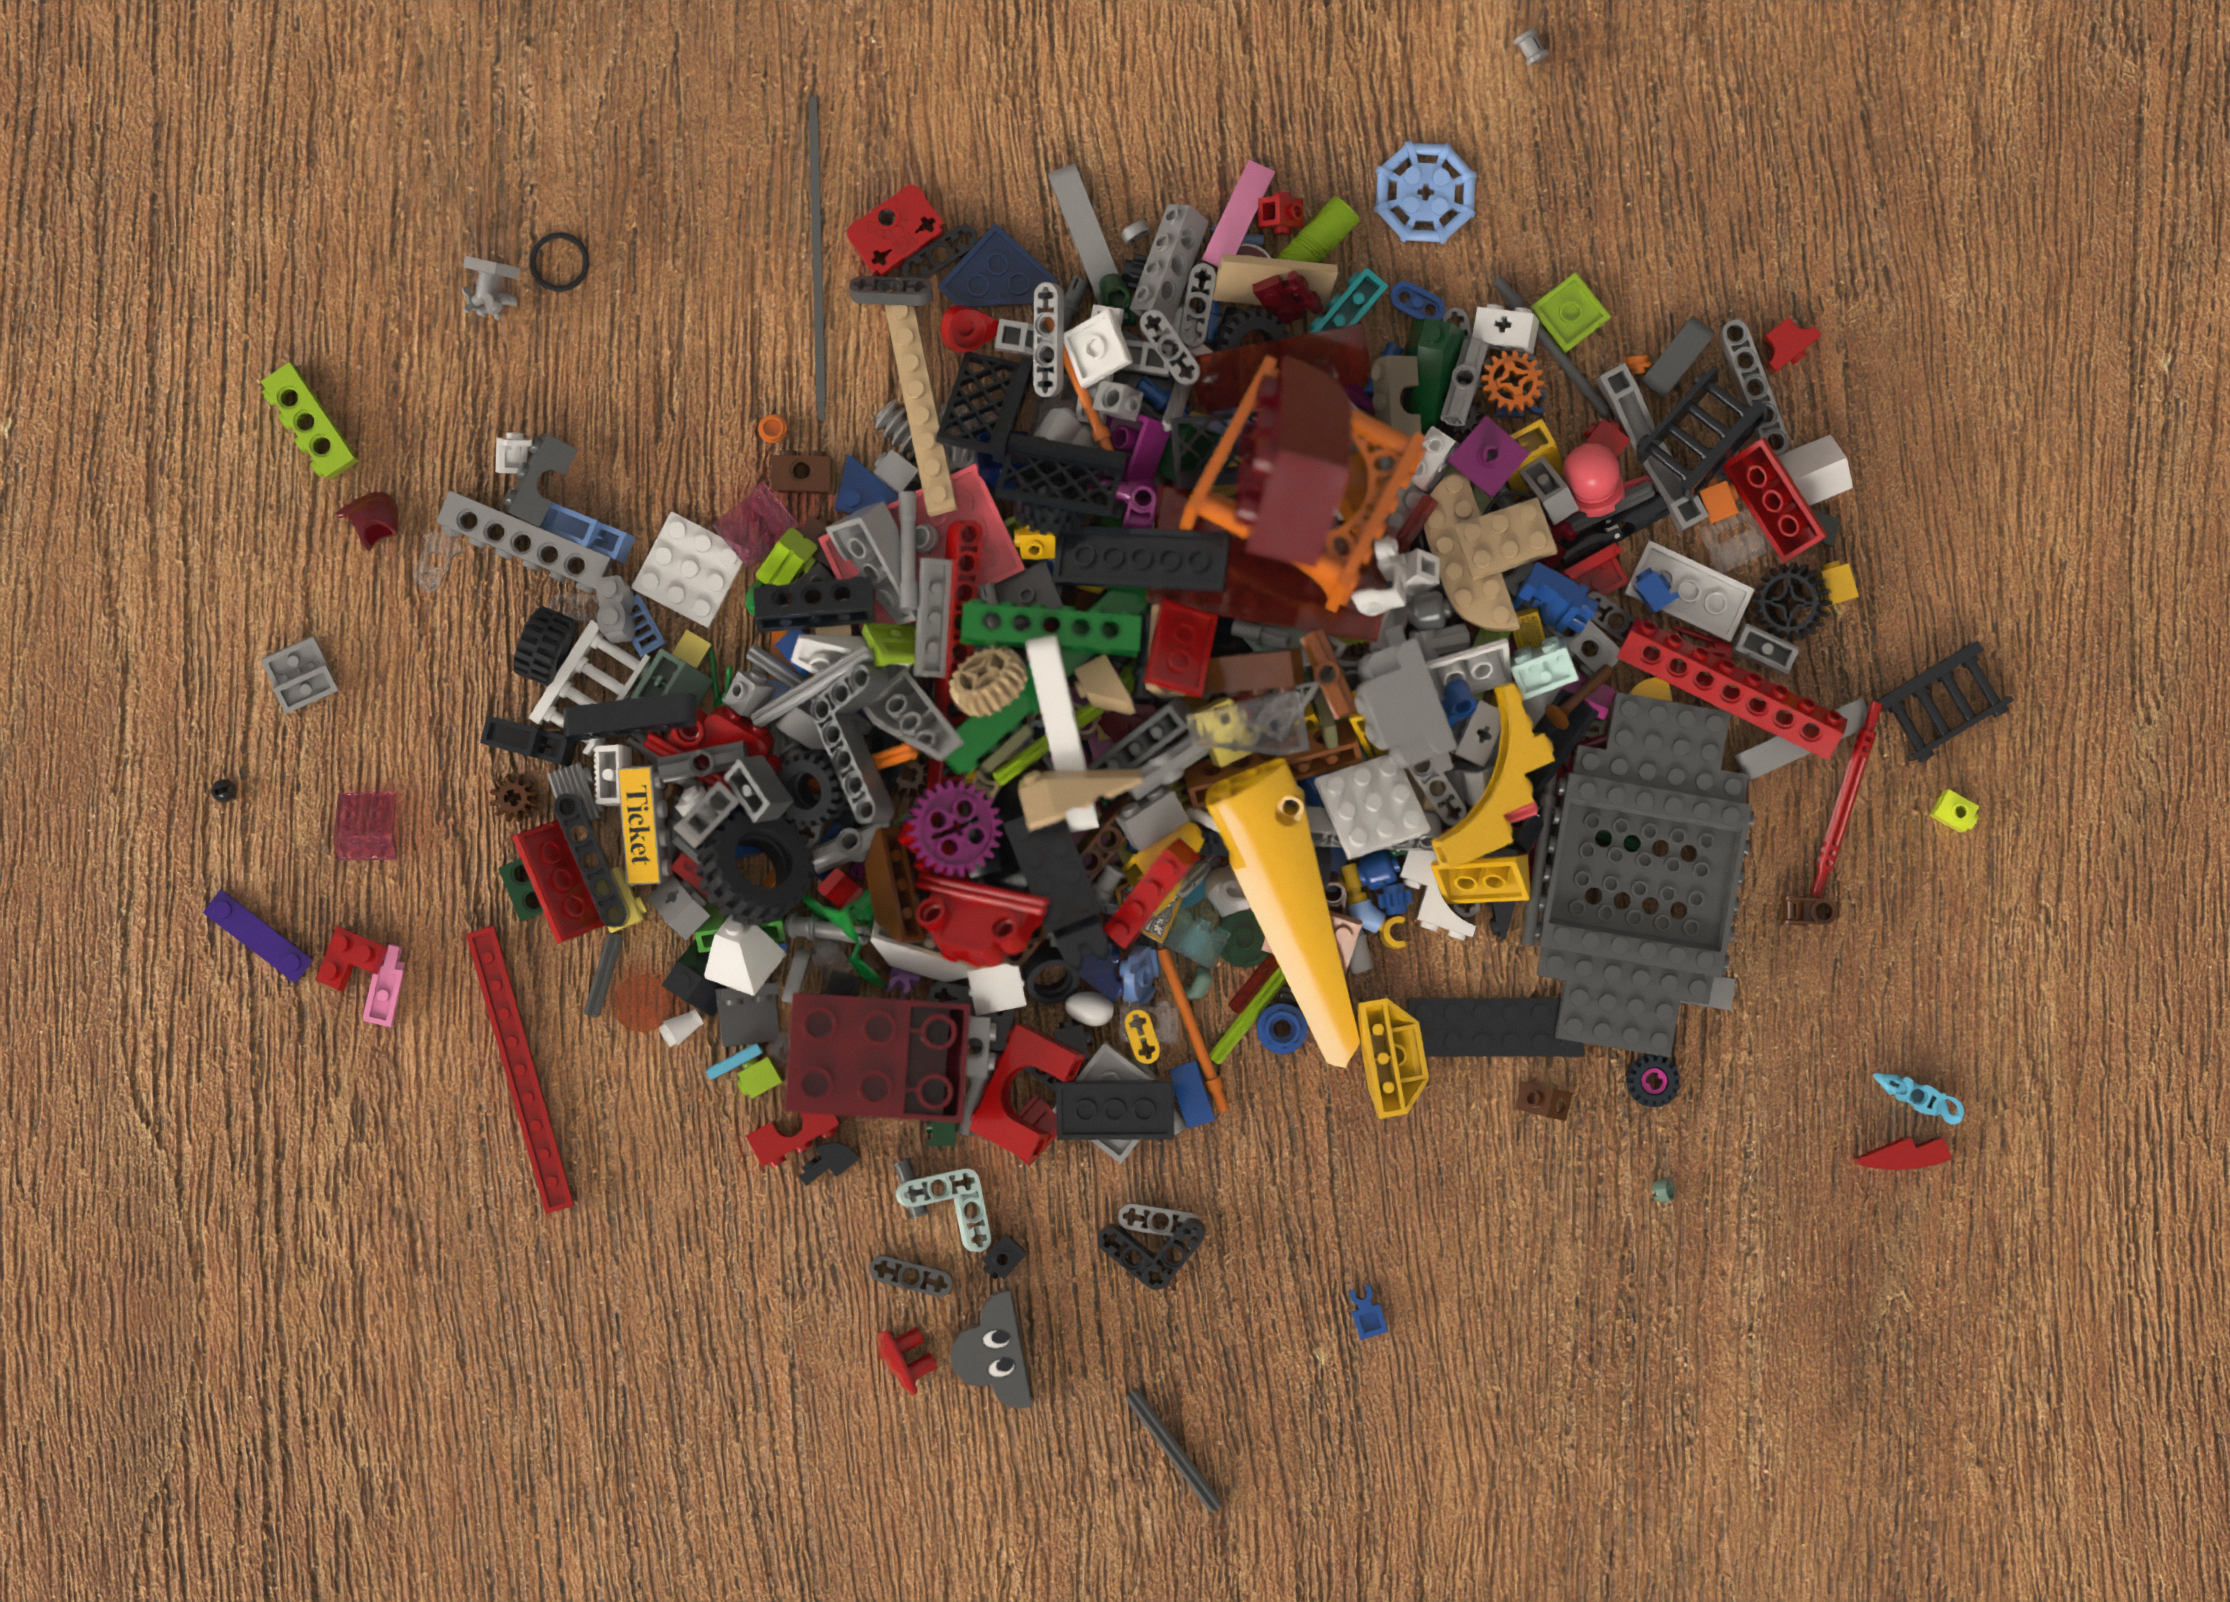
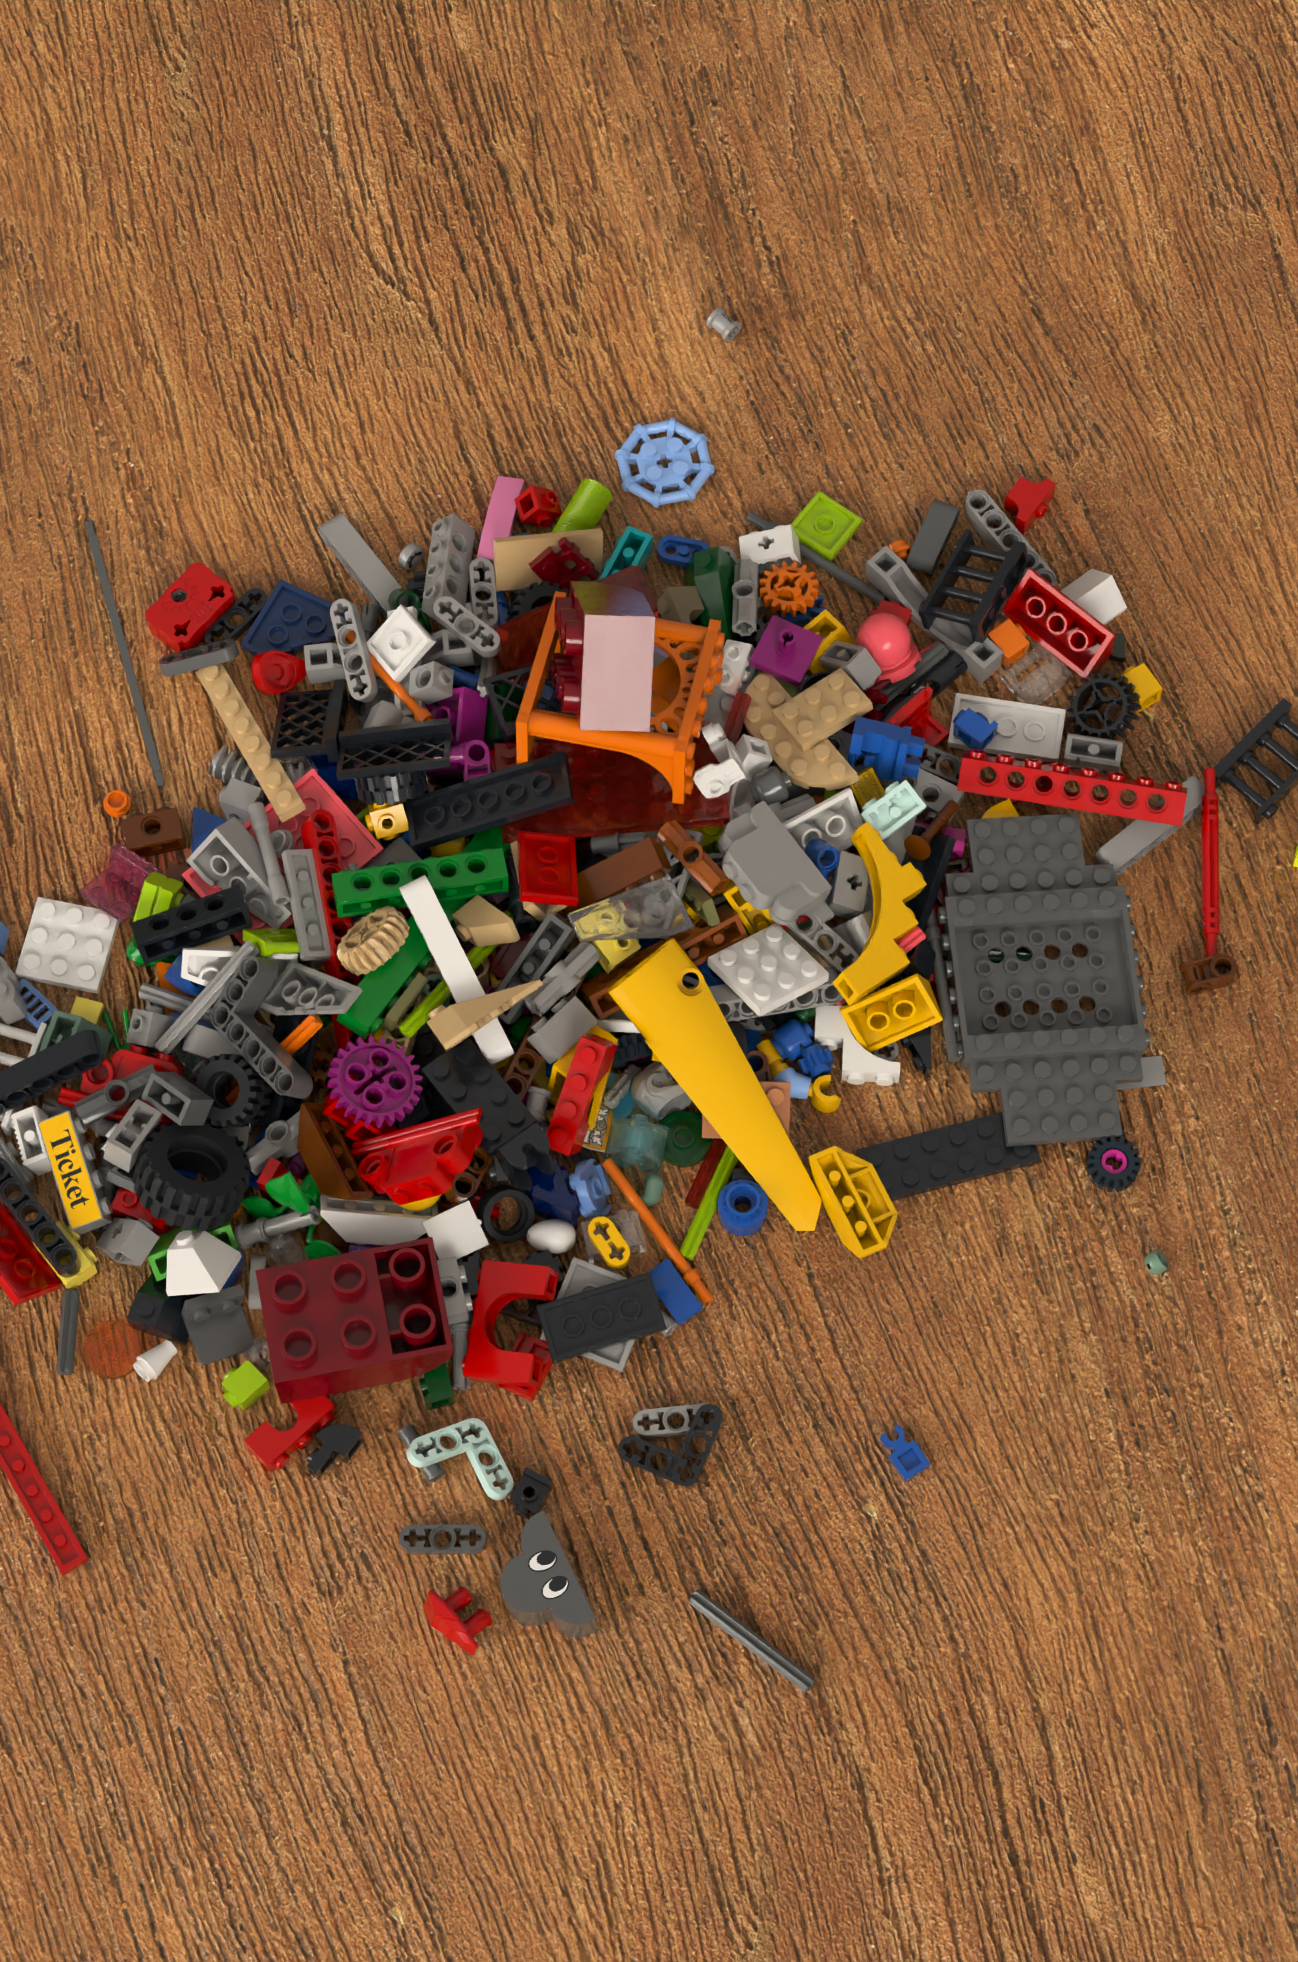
camera: 15 degrees left, 20 degrees down
(734, 1061) = (212, 1380): medium azure tile -> none
(1361, 956) = (799, 1125): light grey piece -> none
(1543, 1100) = (1013, 1208): reddish brown bracket -> none

